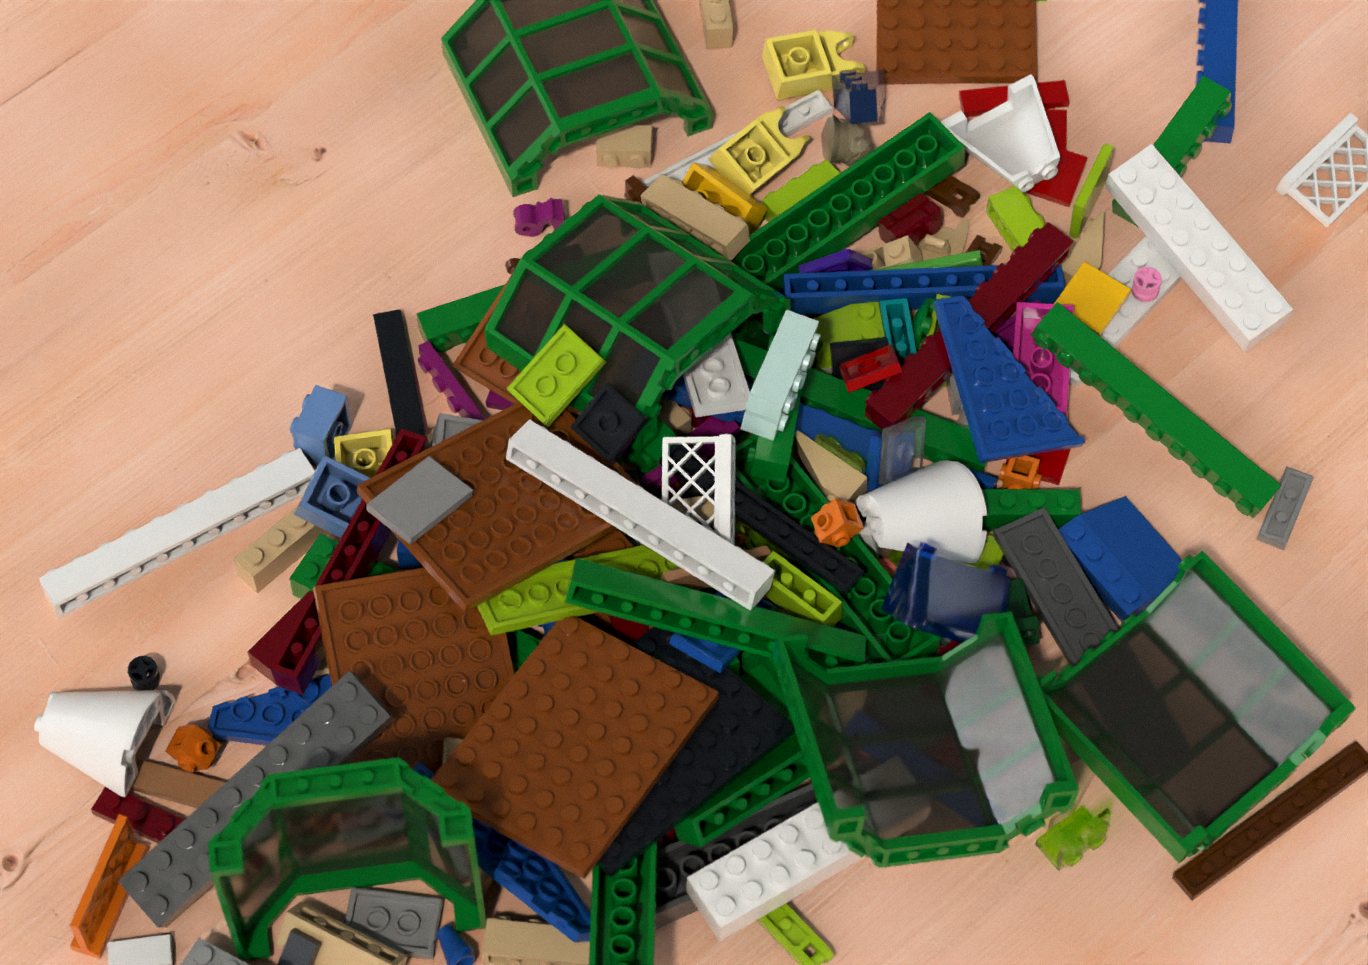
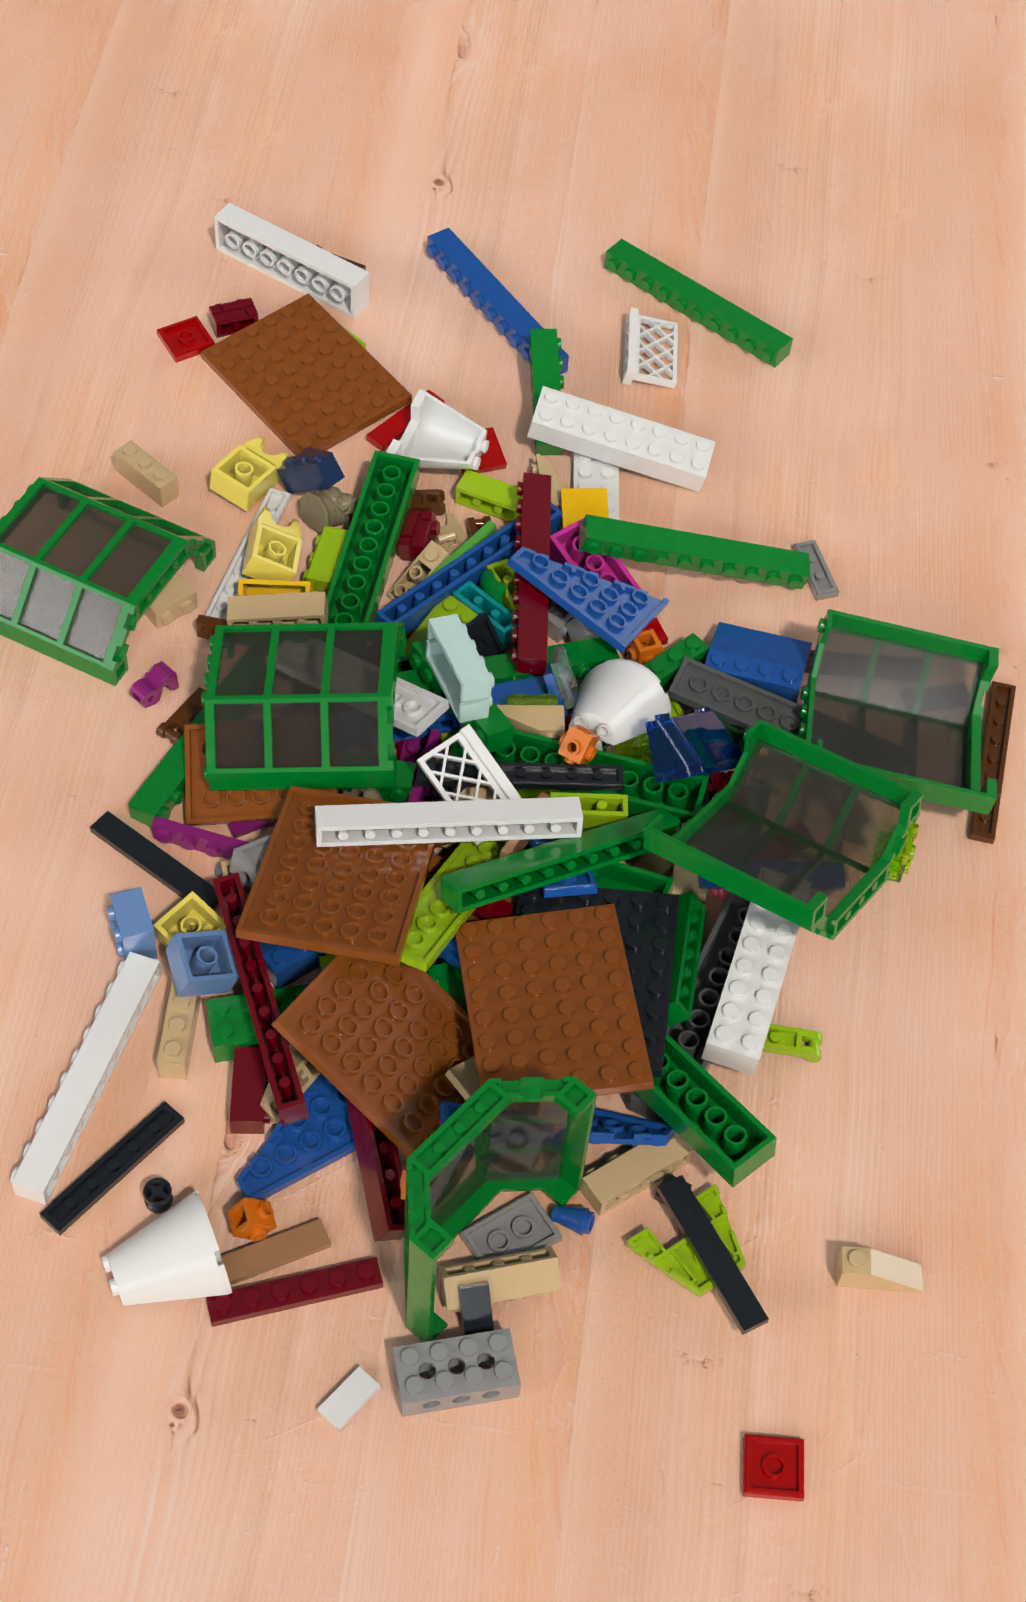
camera: 45 degrees left, 5 degrees down
(104, 895) = (284, 1371): orange fence -> none
(133, 625) = (112, 1168): none -> black tile
(322, 736) = (353, 1214): dark grey brick -> none
(419, 500) = (292, 910): light grey tile -> none
(556, 375) = (300, 766): lime tile -> none
(609, 423) = (367, 775): black tile -> none
(838, 262) = (409, 580): dark purple tile -> none
(870, 368) = (497, 635): red tile -> none
(1091, 191) = (517, 442): lime tile -> none
(1142, 278) = (609, 479): bright pink wheel -> none

